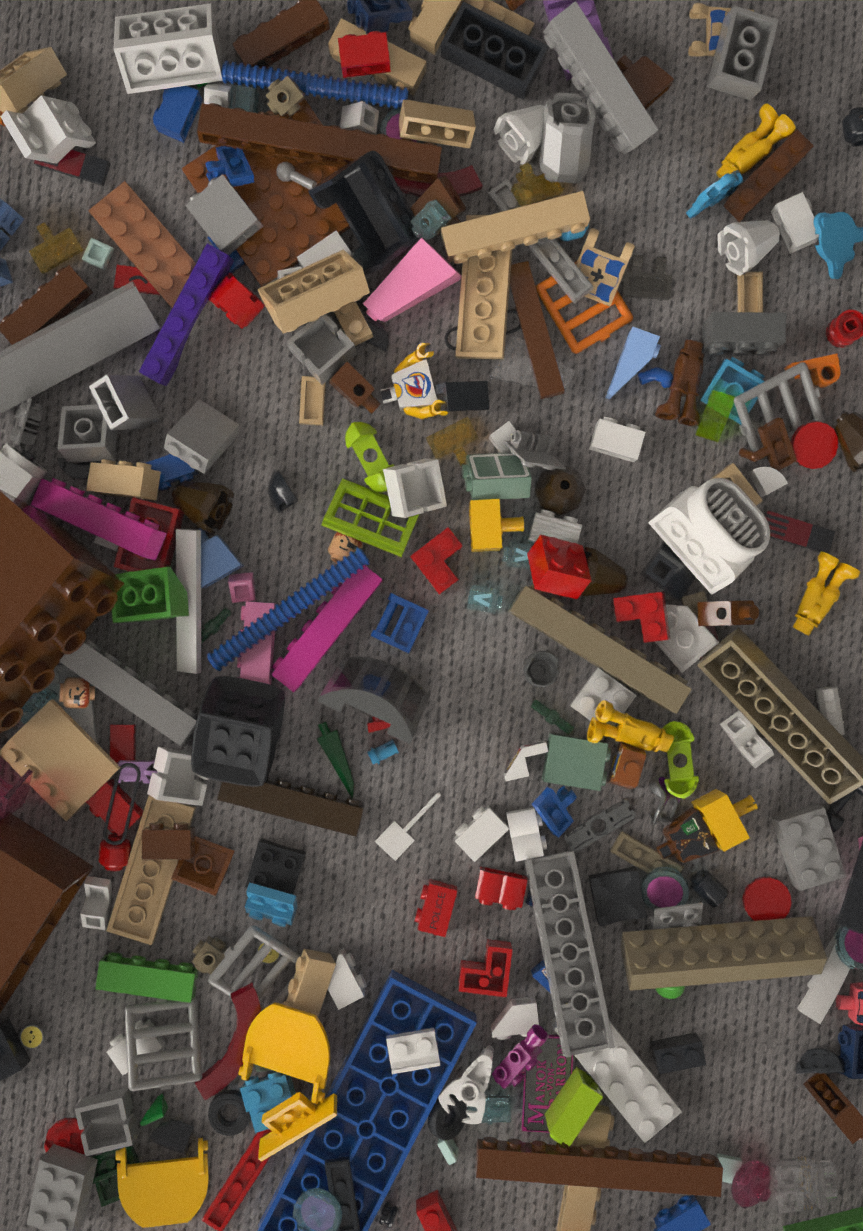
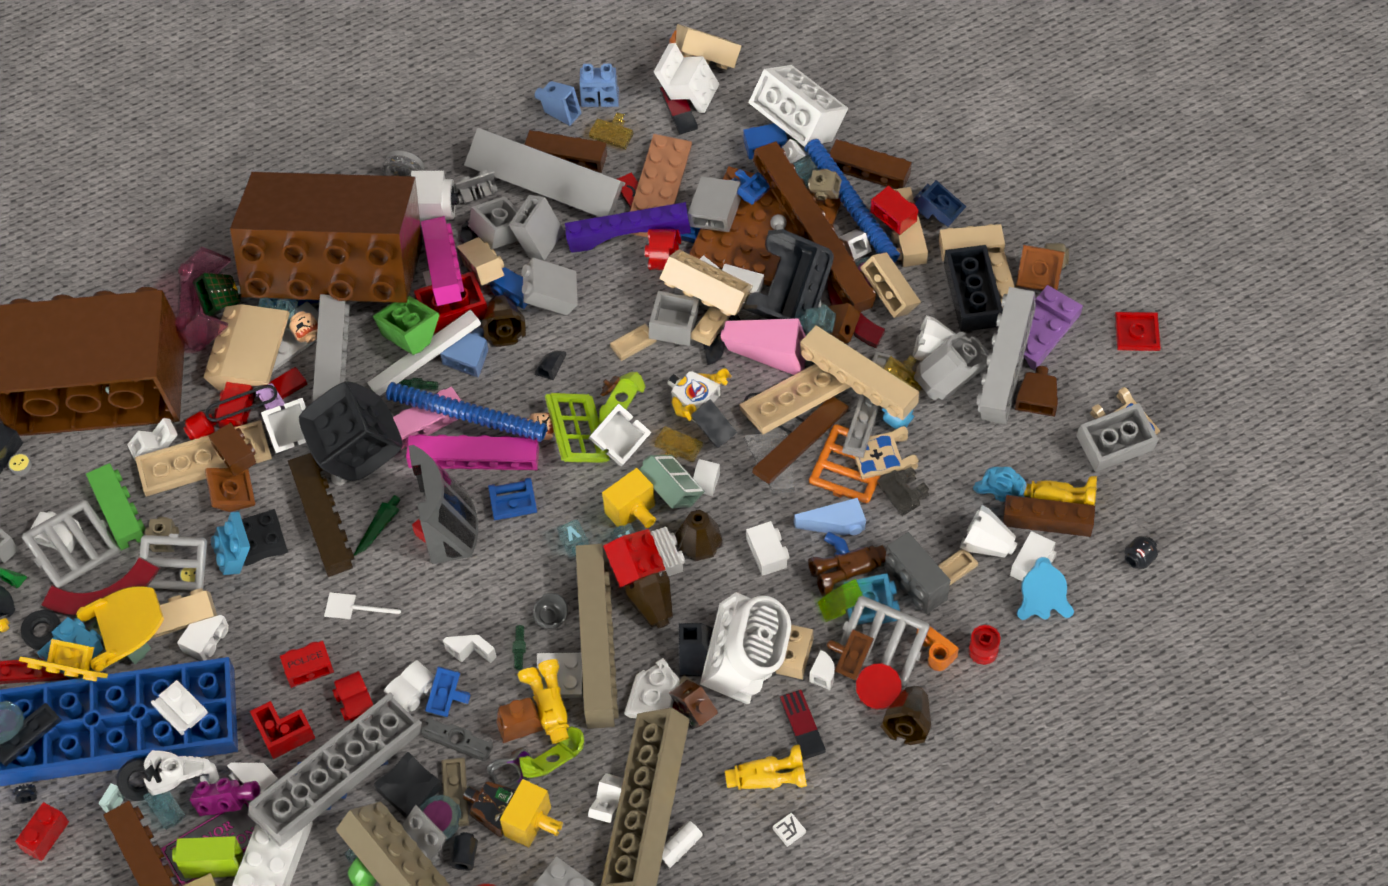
camera: 60 degrees right, 30 degrees down
(98, 254) = (629, 158): light aqua tile -> none
(242, 587) = (461, 384): bright pink slope -> none
(346, 380) = (662, 354): reddish brown torso -> none
(348, 456) = (609, 385): none -> reddish brown plant
(382, 752) = (404, 550): dark azure pin -> none
(431, 560) = (578, 485): red brick -> none
(480, 832) = (388, 654): white brick -> none
(533, 450) = (701, 485): light grey hinge -> none
(575, 762) = (494, 682): sand green brick -> none
(650, 610) = (651, 652): red brick -> none

